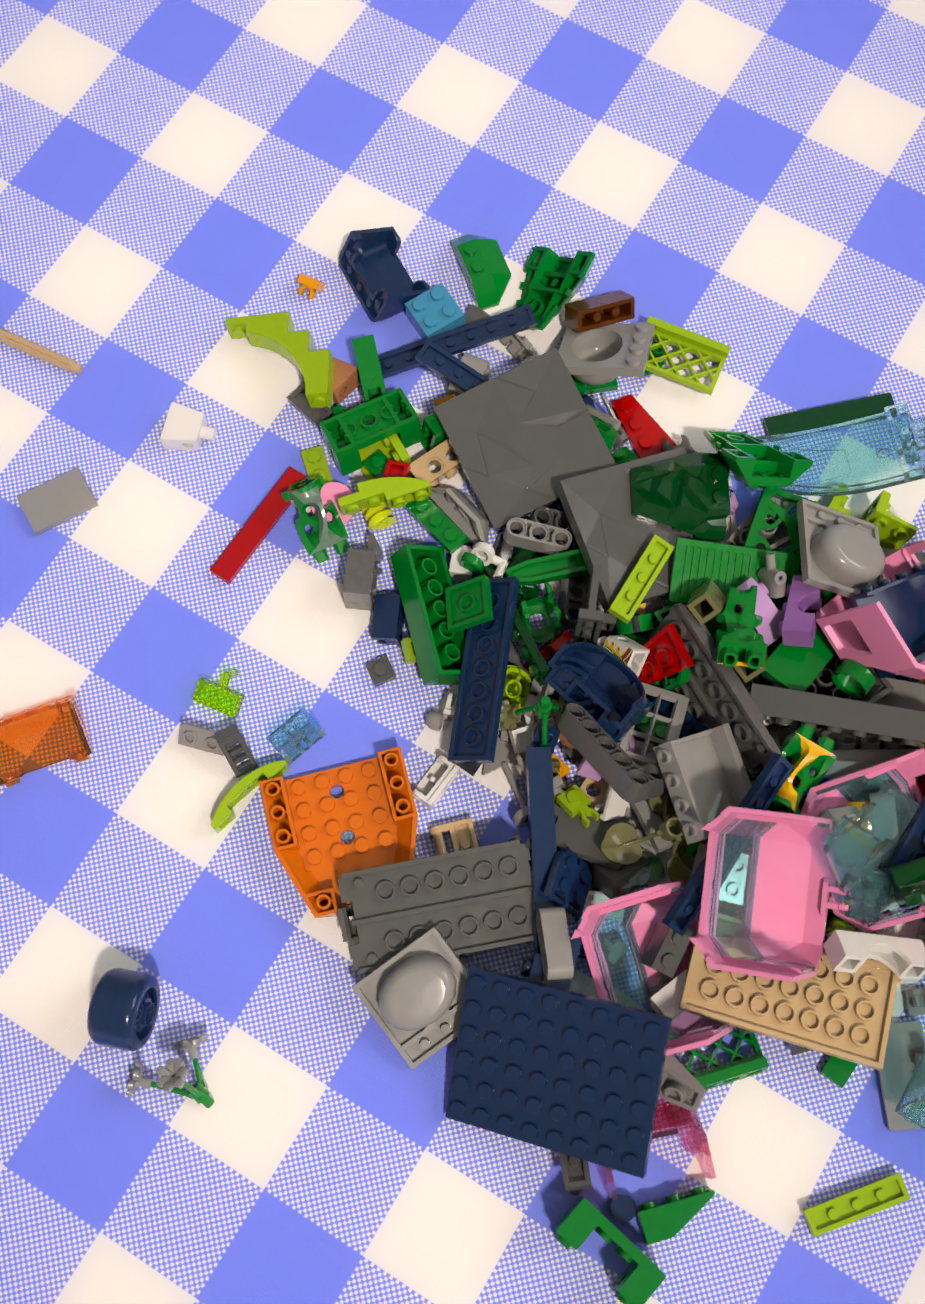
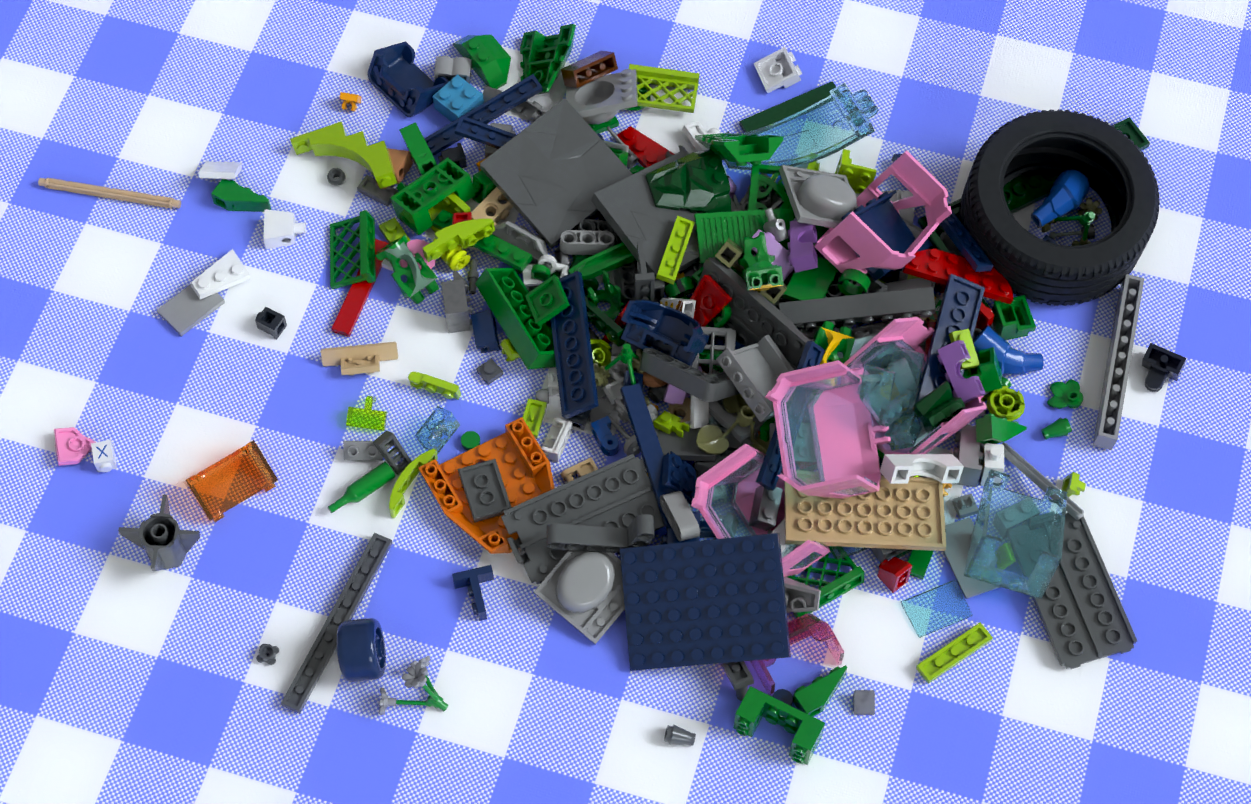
camera: 15 degrees left, 10 degrees down
(19, 967) = (267, 648): none -> dark grey plate
(100, 472) = (221, 275): none -> white wing
(110, 956) = (342, 611): none -> dark grey plate
(135, 339) = (220, 170): none -> white tile
(144, 553) = (271, 322): none -> black brick
(145, 378) = (237, 198): none -> green slope
(192, 785) = (364, 486): none -> green piece
(230, 617) = (359, 358): none -> tan bracket
(268, 372) = (336, 172): none -> dark grey plate
(275, 477) = (365, 248): none -> green fence
(285, 956) = (471, 579): none -> dark blue bracket
(309, 674) = (434, 385): none -> lime hinge
(331, 830) = (484, 490): none -> dark grey tile
(334, 756) = (470, 440): none -> green tile
(393, 542) = (473, 276): none -> dark grey bar
(411, 385) = (455, 154): none -> black brick
(417, 745) = (534, 415): none -> lime plate
(438, 271) = (450, 67): none -> light grey brick
(448, 945) = (599, 538): none -> dark grey beam
(480, 1224) = (679, 736): none -> dark grey cone
(496, 801) = (601, 431): none -> blue leg
(707, 420) = (693, 129): none -> white plate
(724, 1242) = (864, 702): none -> flat silver slope
(806, 1075) = (894, 573): none -> red slope
(827, 363) = (778, 70): none -> white plate
(848, 1133) = (936, 608): none -> clear light blue piece

